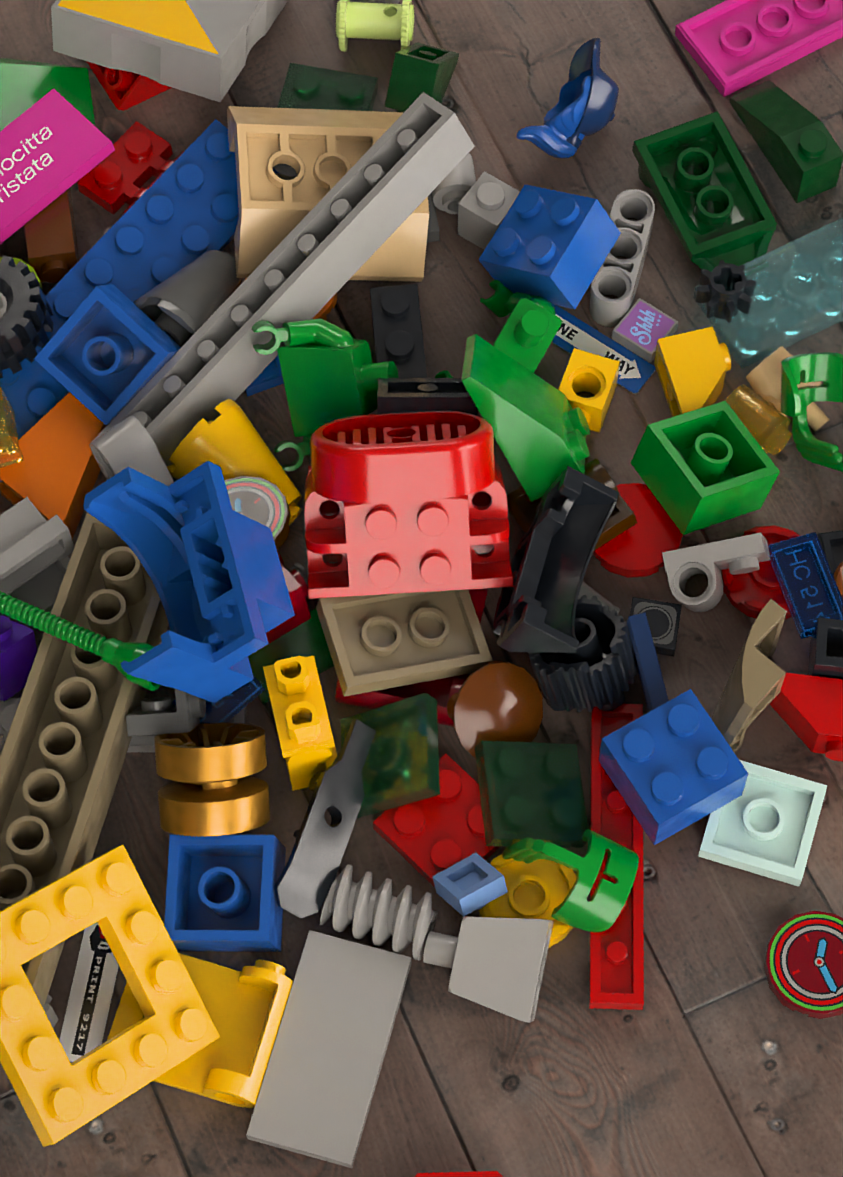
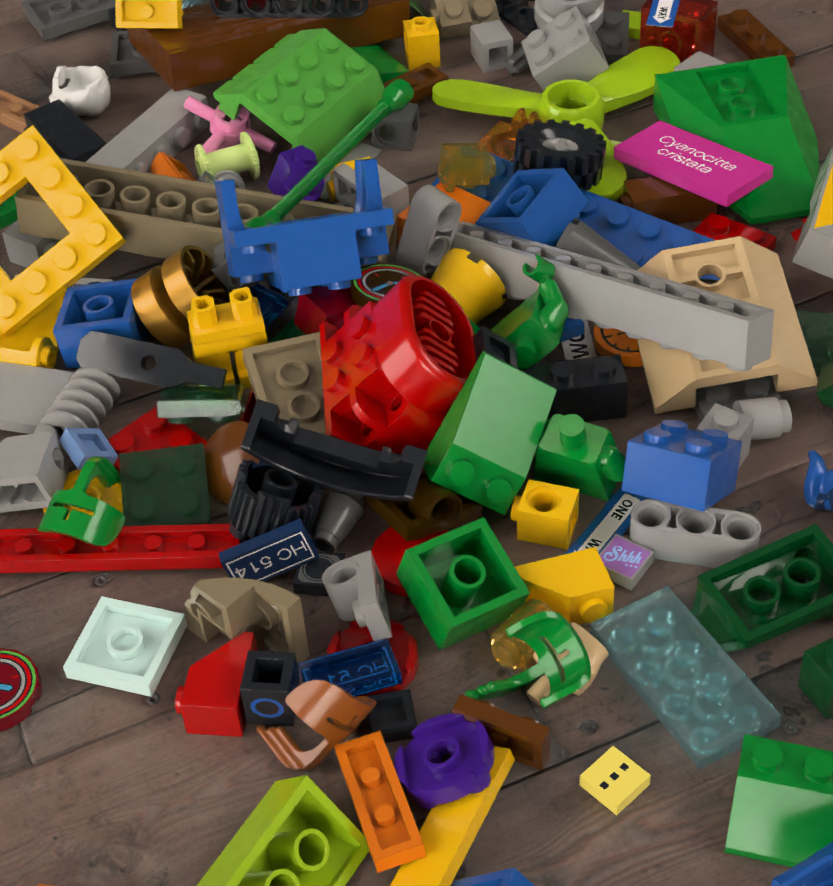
camera: 90 degrees right, 20 degrees down
(672, 766) = (162, 556): blue brick -> none
(725, 291) = (652, 592): black gear -> none

